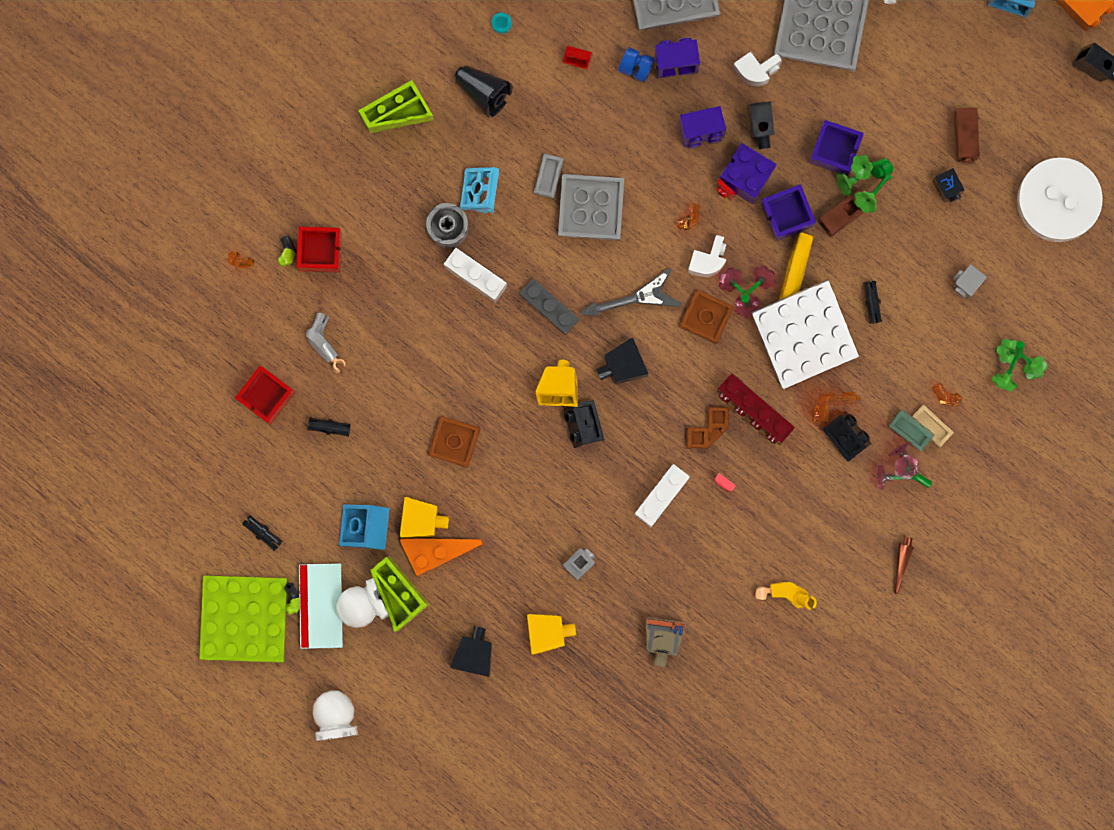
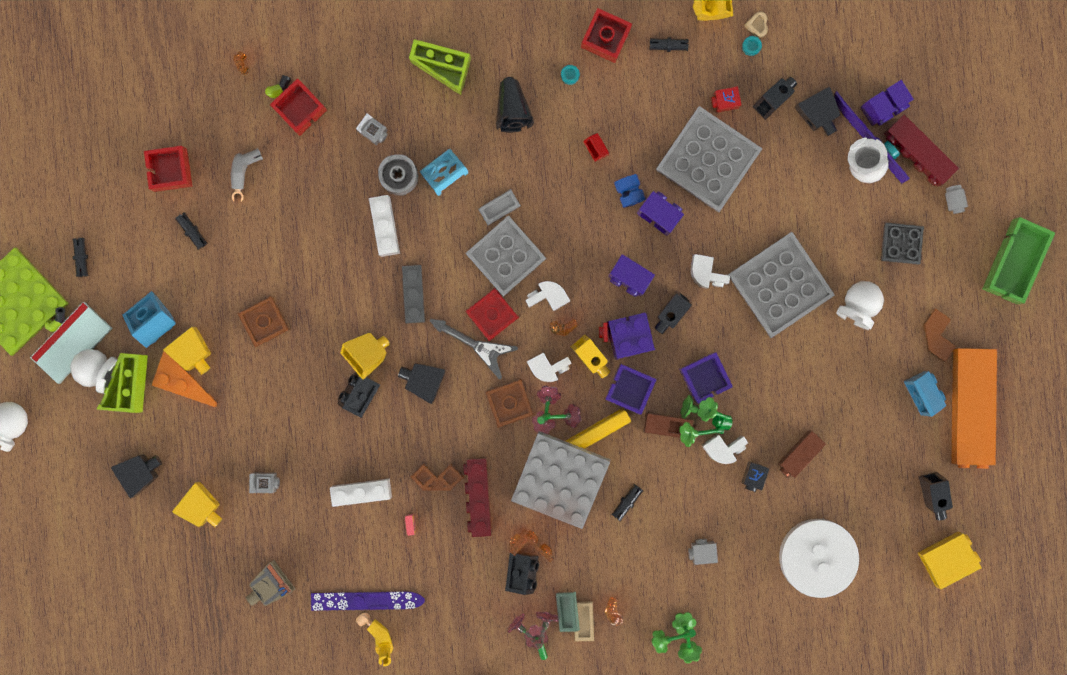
camera: 45 degrees right, 5 degrees up
(392, 212) = (372, 129): none -> light grey window
(625, 262) = (492, 314): none -> red tile
(654, 199) = (552, 292): none -> white brick
(724, 217) = (586, 351): none -> yellow torso
(749, 578) = (365, 600): none -> dark purple piece
(904, 194) = (721, 452): none -> white brick

